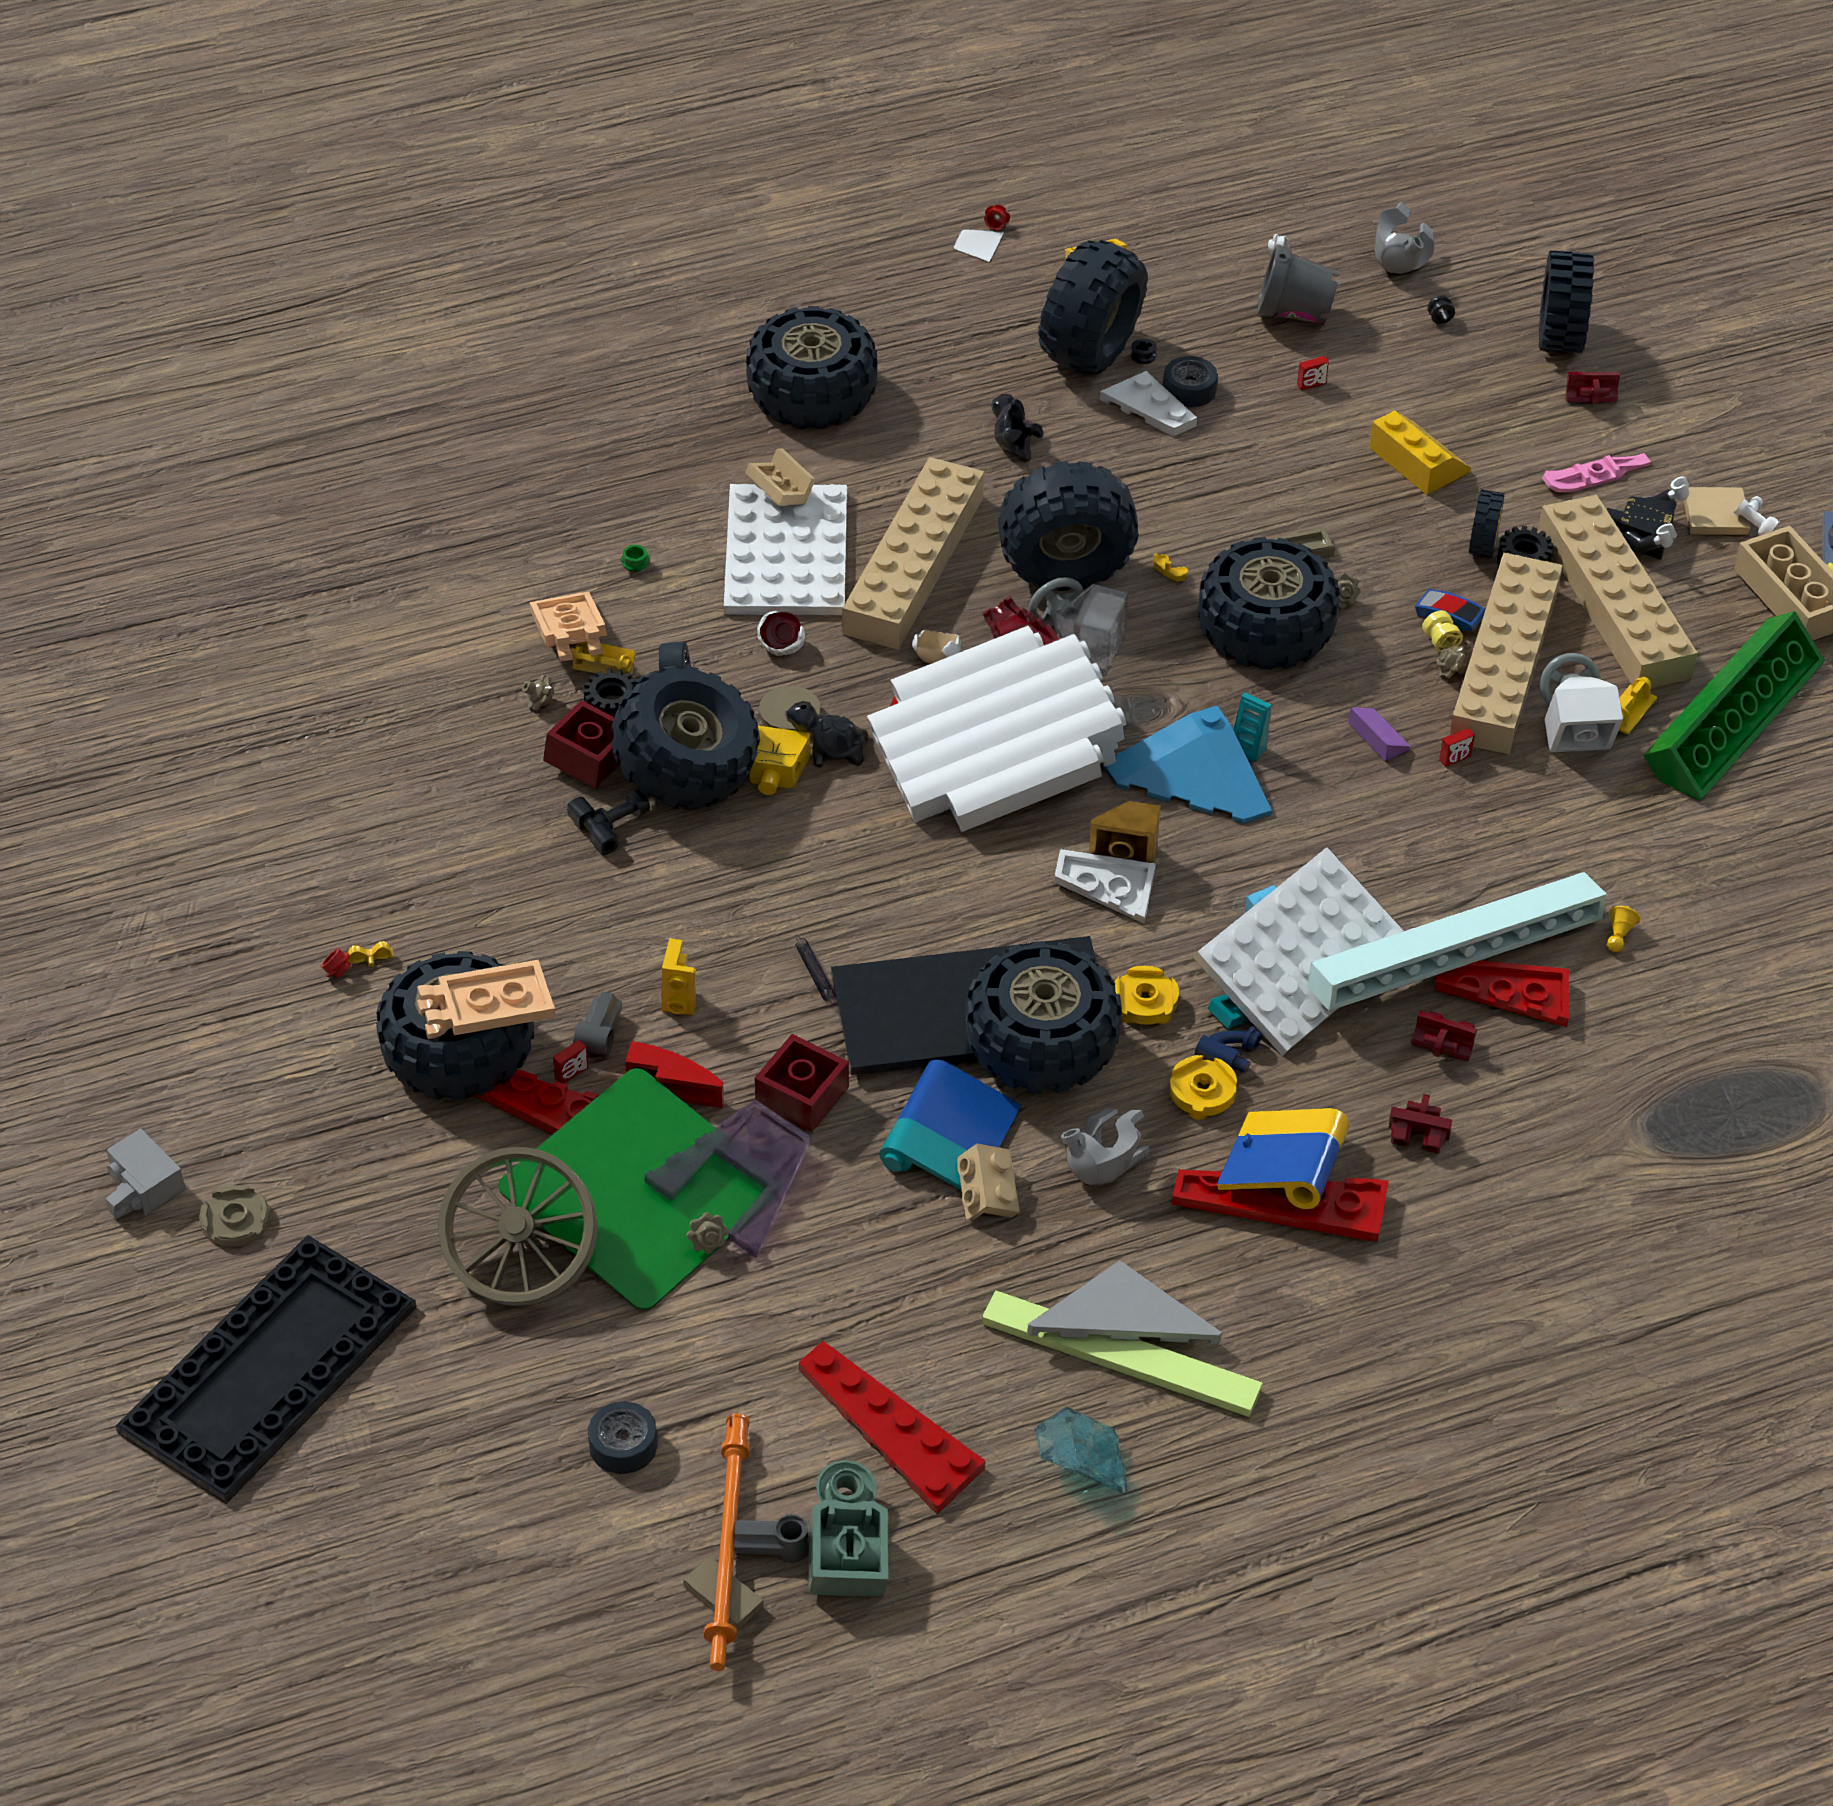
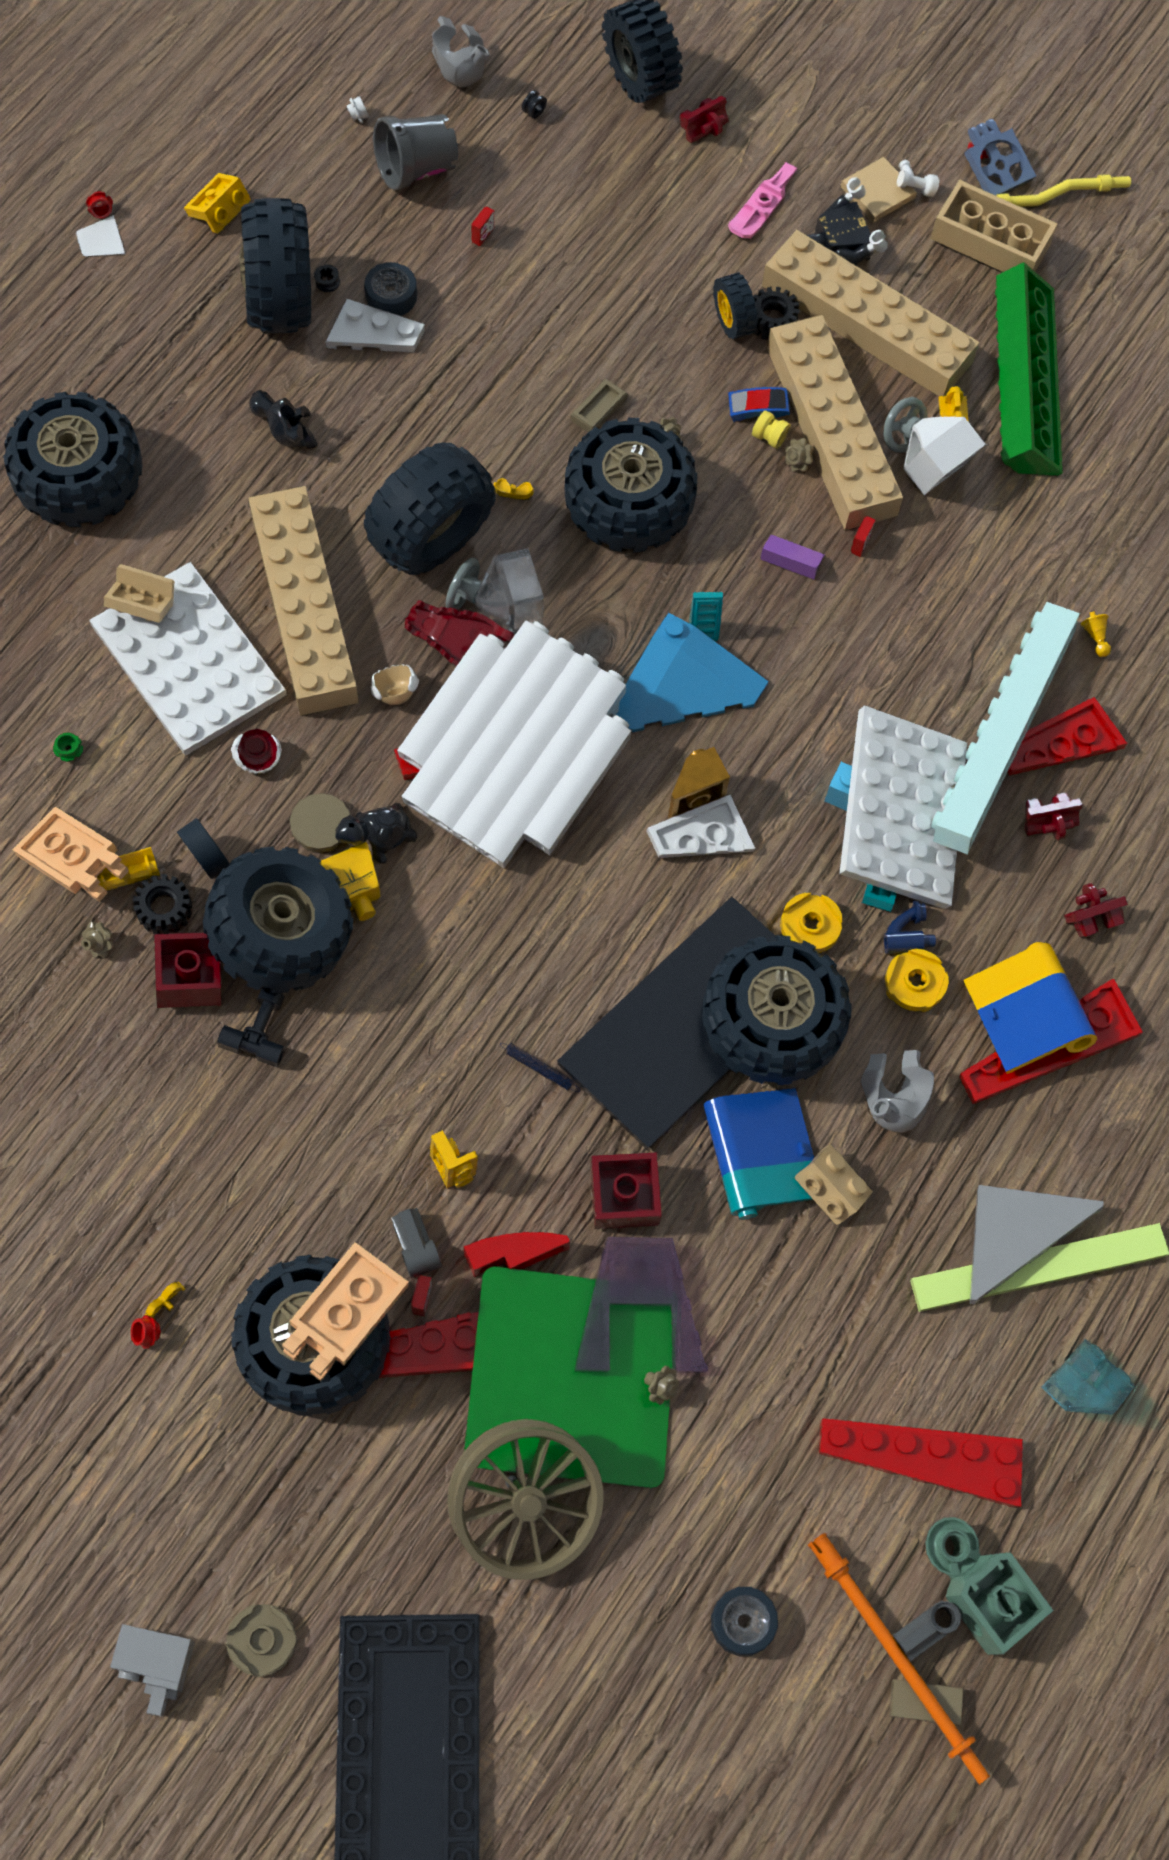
camera: 40 degrees left, 20 degrees up
(1415, 453) = (620, 262): yellow slope -> none

